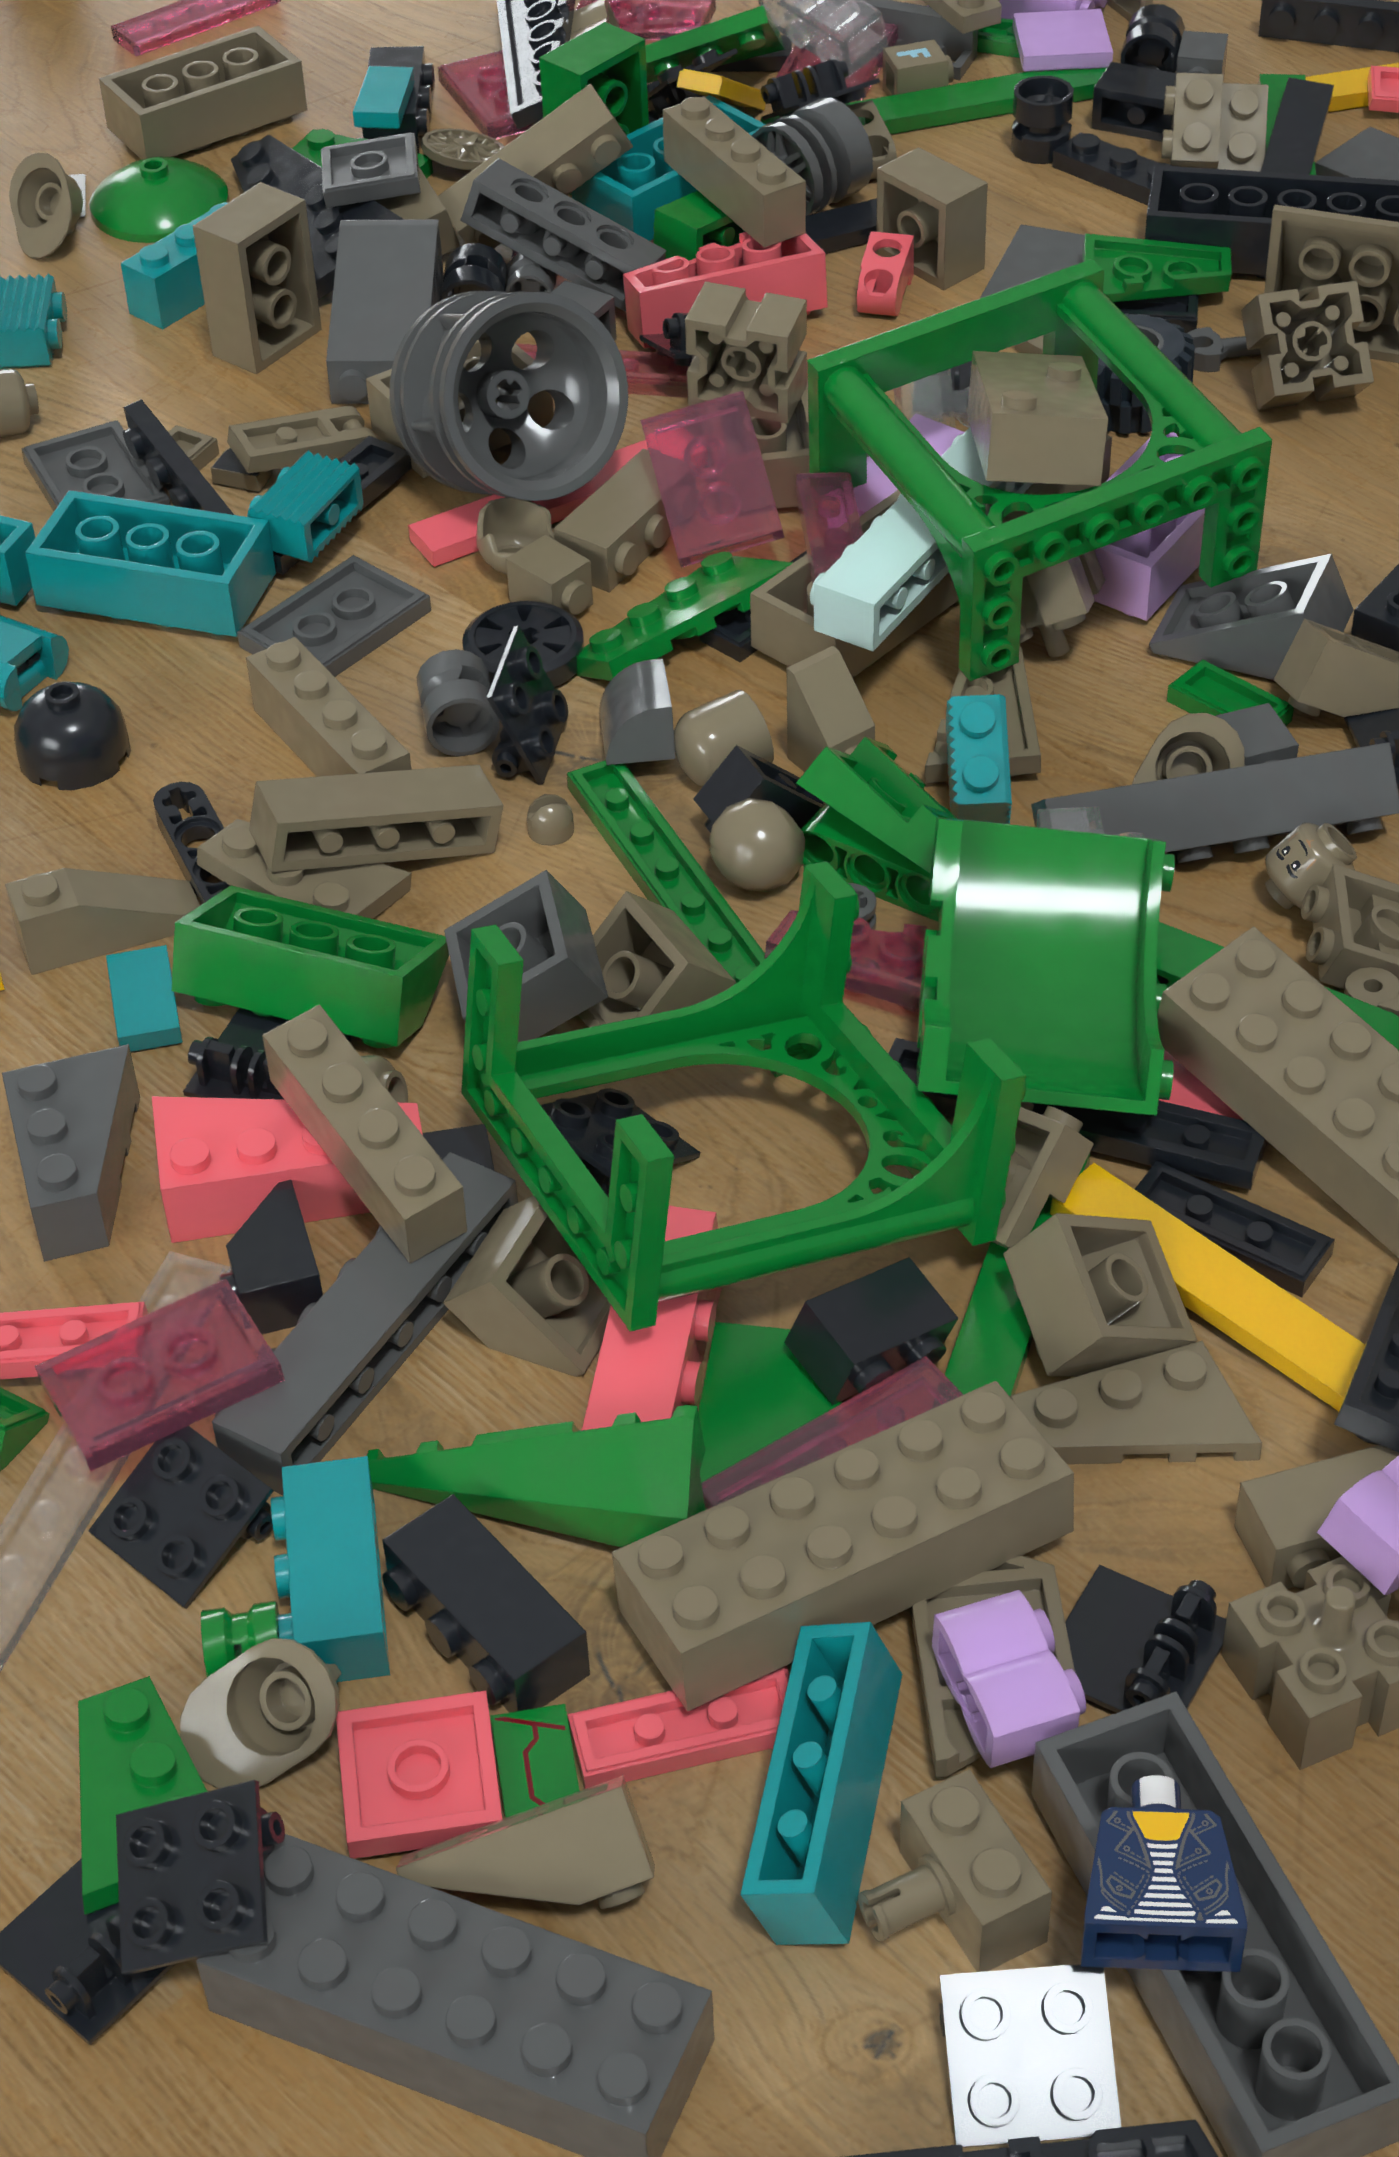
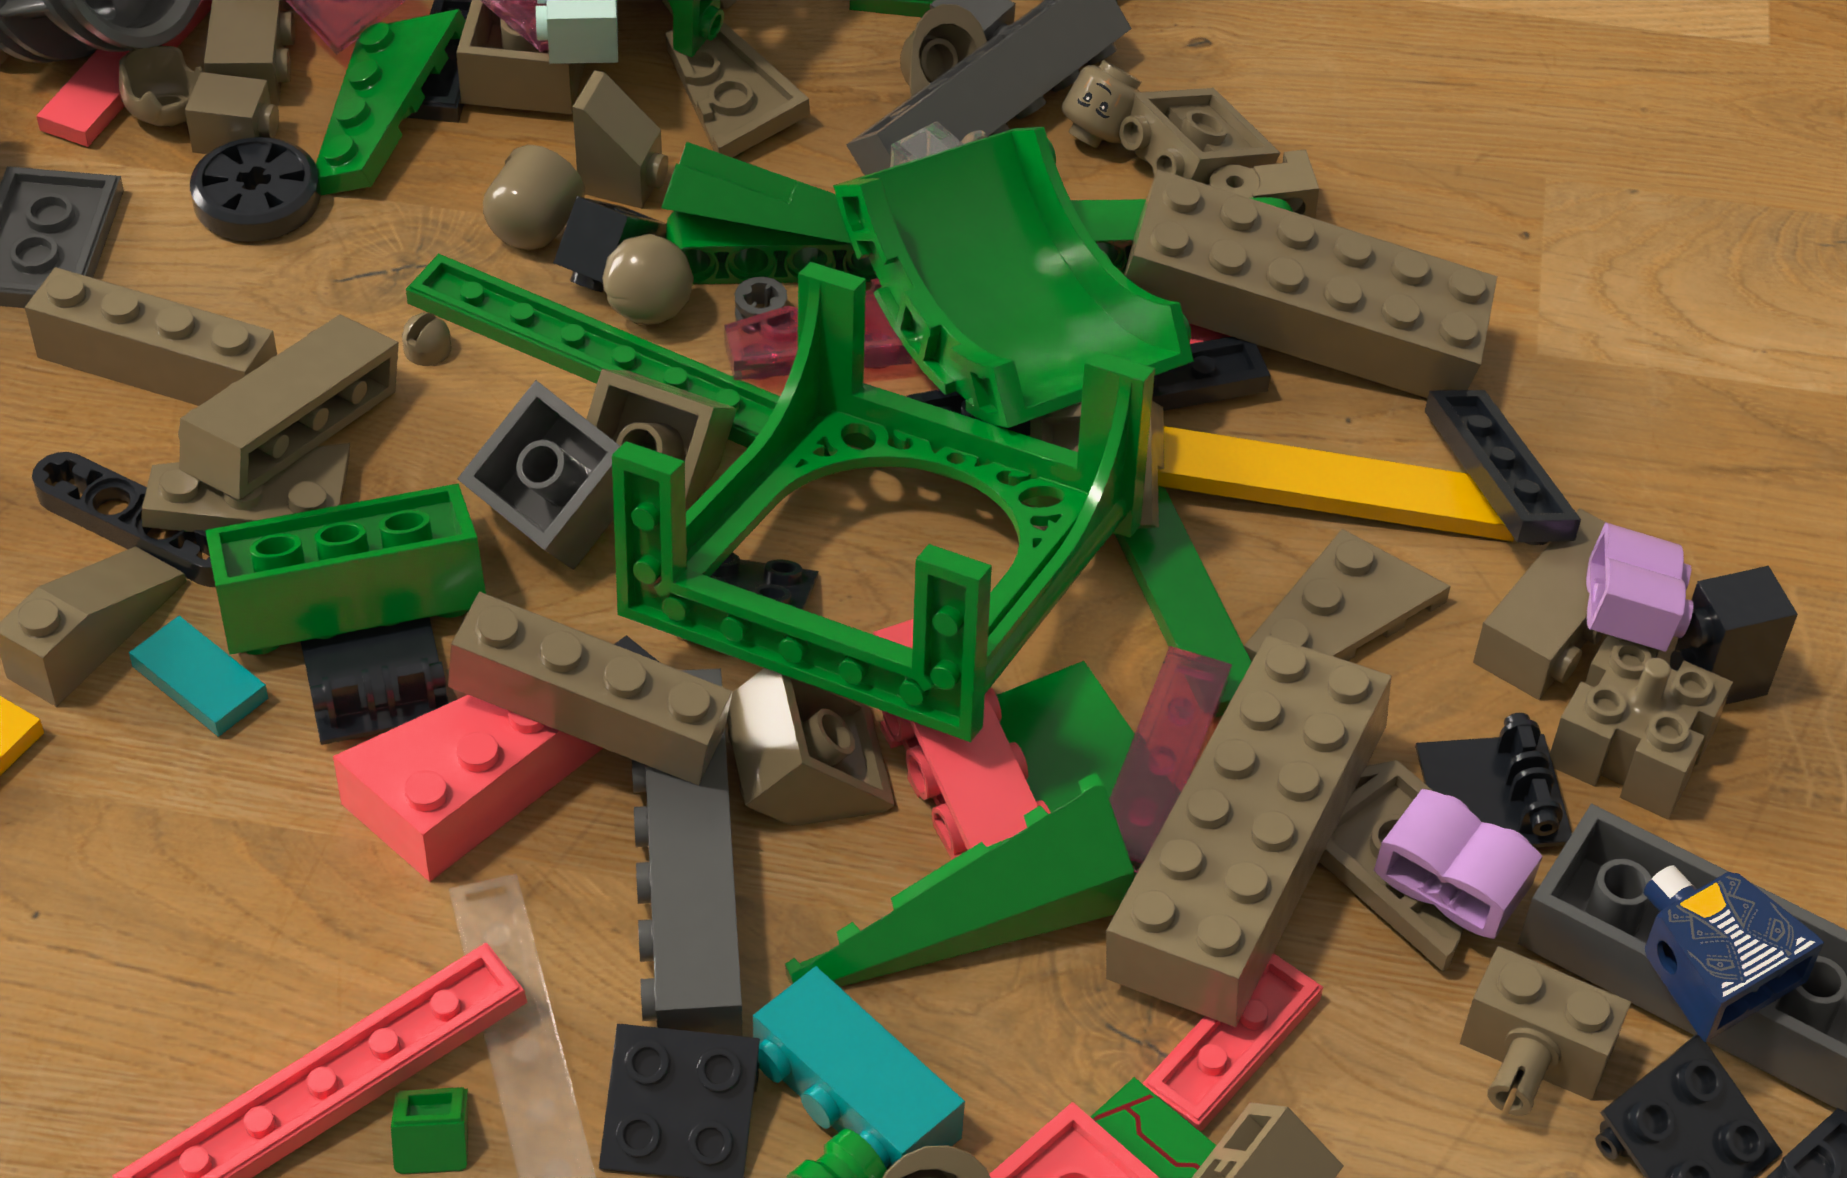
camera: 40 degrees left, 5 degrees up
(72, 1144) = (273, 843): dark grey wedge -> none
(159, 1374) = (573, 996): clear pink tile -> none
(274, 1262) = (568, 851): black slope -> none
(455, 703) = (253, 265): dark grey wheel -> none
(484, 1608) = (1008, 1035): black brick -> none
(528, 710) = (328, 253): black hinge -> none
(637, 715) = (432, 206): dark grey brick -> none
(822, 1785) = (1393, 1020): teal brick -> none
(870, 1329) = (1113, 649): black brick -> none
(978, 758) = (776, 123): teal brick -> none
(1097, 1293) = (1250, 532): dark tan slope -> none
(1256, 1236) = (1313, 425): black tile -> none

